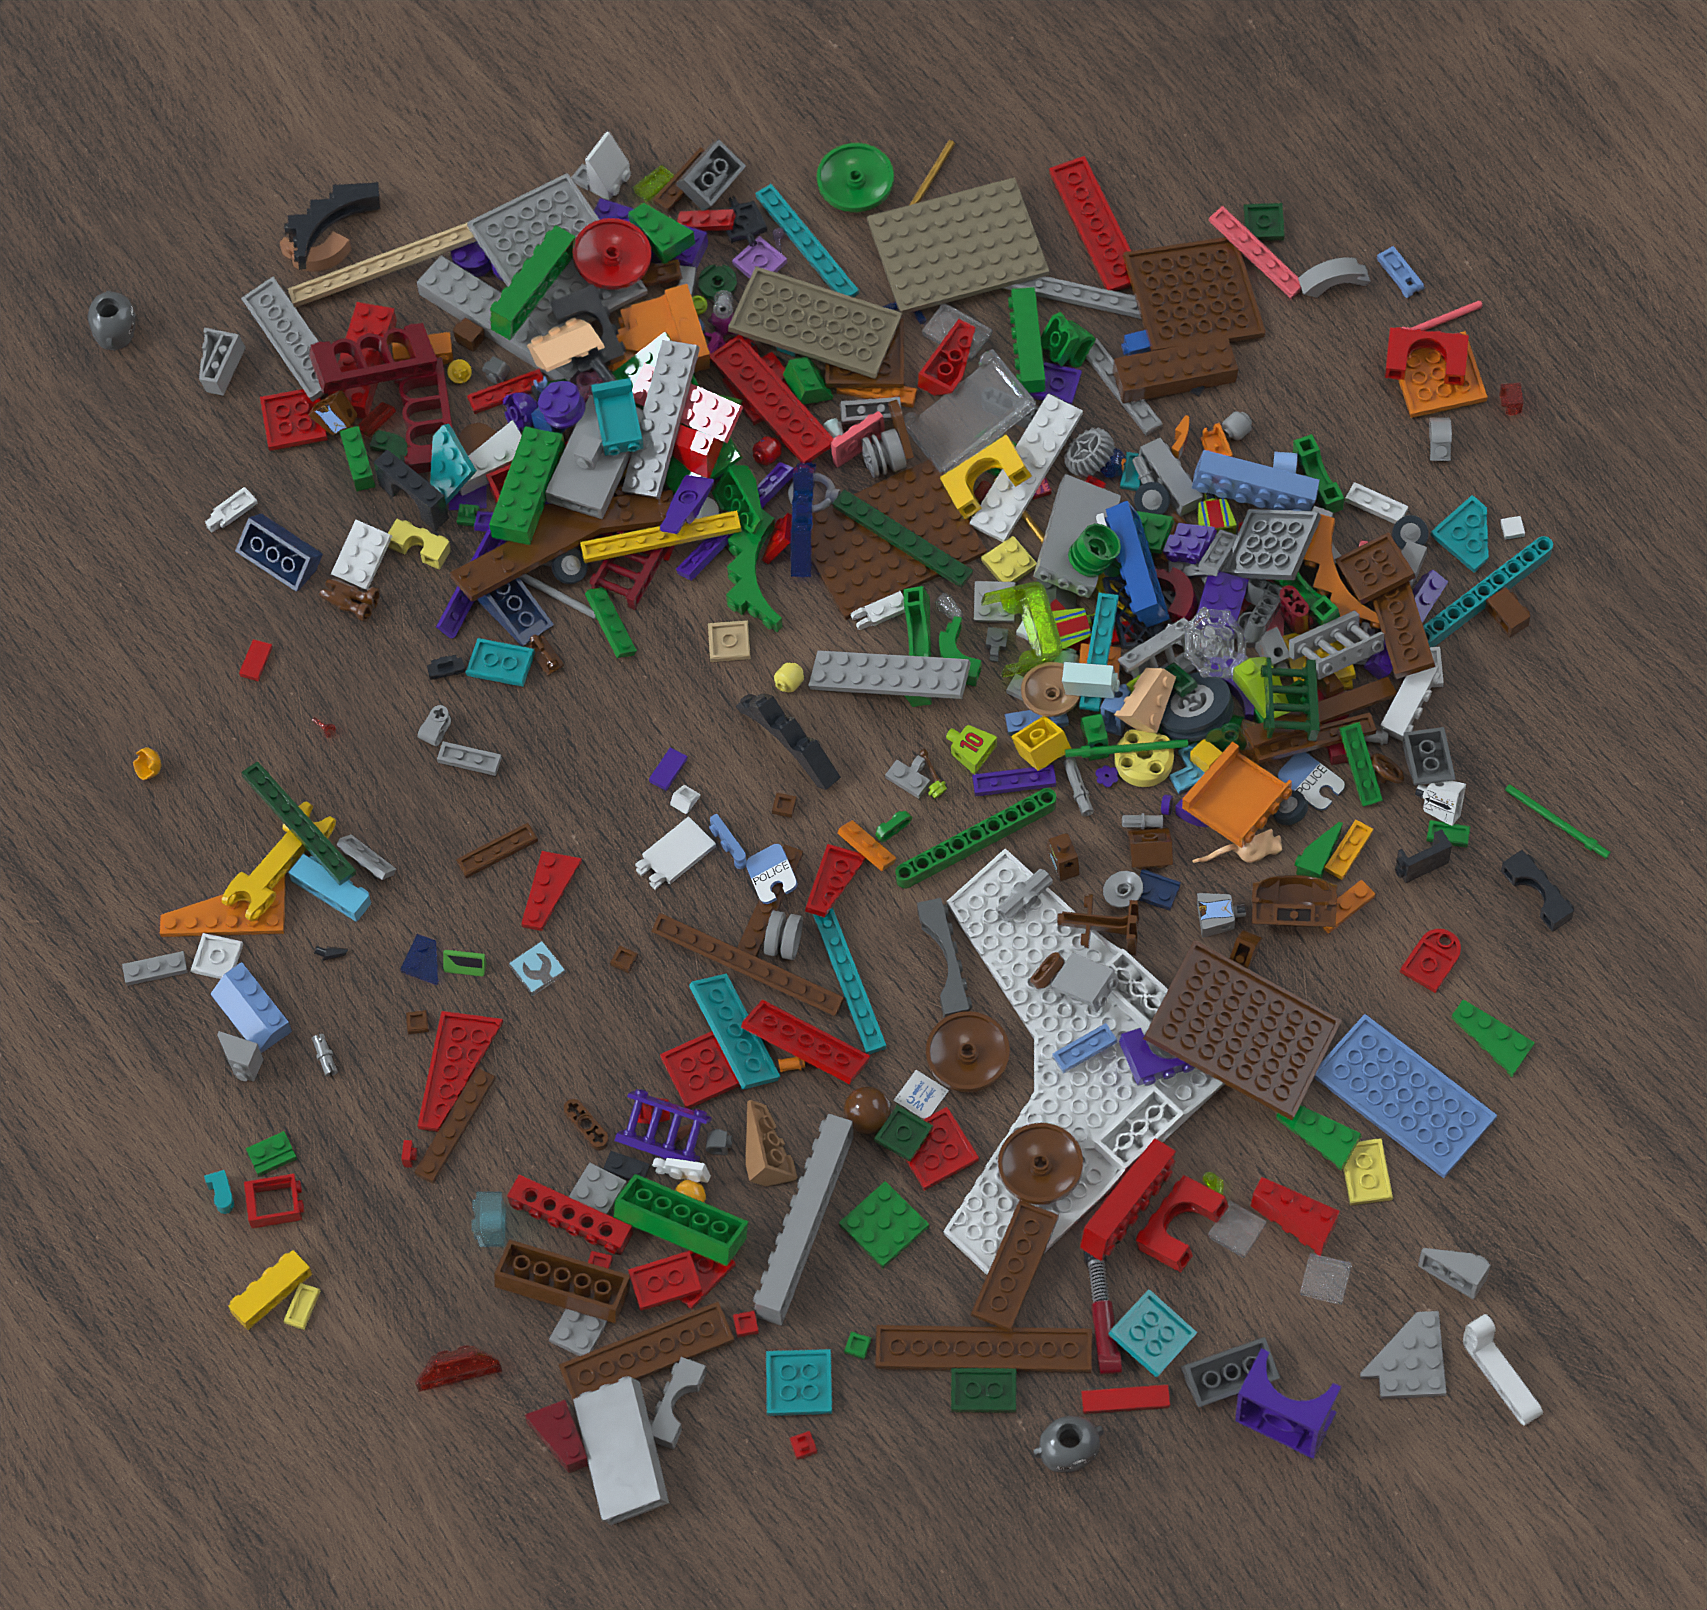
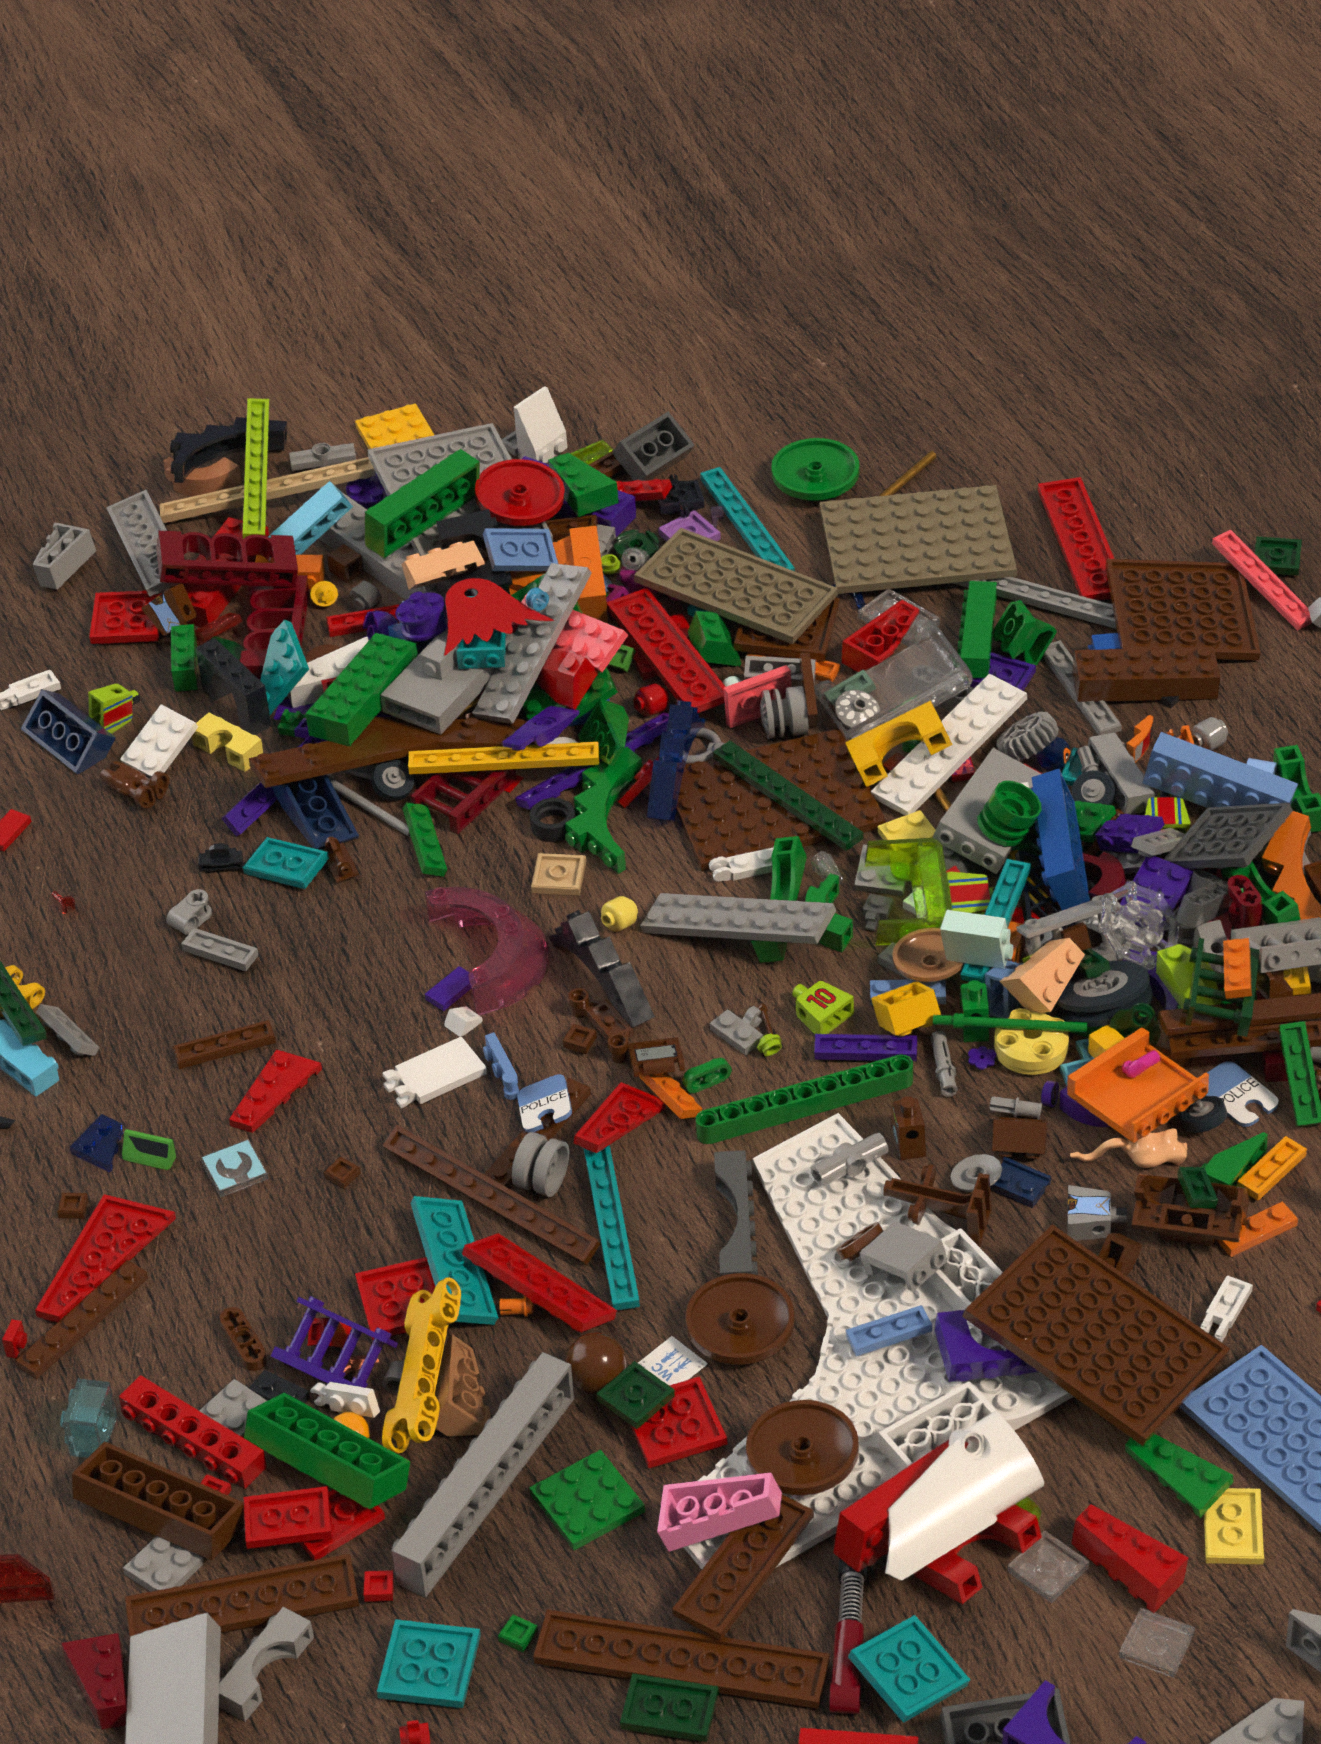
camera: 10 degrees right, 20 degrees down
(311, 522) = (112, 706): none -> lime torso
(369, 248) = (256, 467): none -> lime plate
(428, 213) = (322, 456): none -> light grey piece
(432, 299) = (315, 517): none -> medium azure brick
(475, 177) = (393, 427): none -> yellow plate
(615, 400) = (481, 614): none -> red piece
(628, 321) = (519, 549): none -> medium blue plate
(659, 382) = (537, 593): none -> dark azure bush
(705, 575) = (546, 808): none -> black tyre
(717, 718) = (520, 952): none -> clear pink windscreen
(738, 1170) = (416, 1399): none -> yellow piece
(802, 784) = (605, 1019): none -> reddish brown plate
(850, 816) = (656, 1056): none -> reddish brown container
(932, 421) = (859, 681): none -> sand green plate
(934, 441) = (849, 713): none -> light grey dish
(987, 1227) = (715, 1507): none -> bright pink wedge
(1166, 659) = (1078, 934): none -> reddish brown tile
(1168, 1191) = (960, 1494): none -> white panel
(1241, 771) = (1135, 1068): none -> dark pink arm
(1298, 886) = (1197, 1187): none -> dark green plate
(1301, 683) = (1237, 968): none -> orange plate
(1333, 981) = (1226, 1306): none -> white hinge

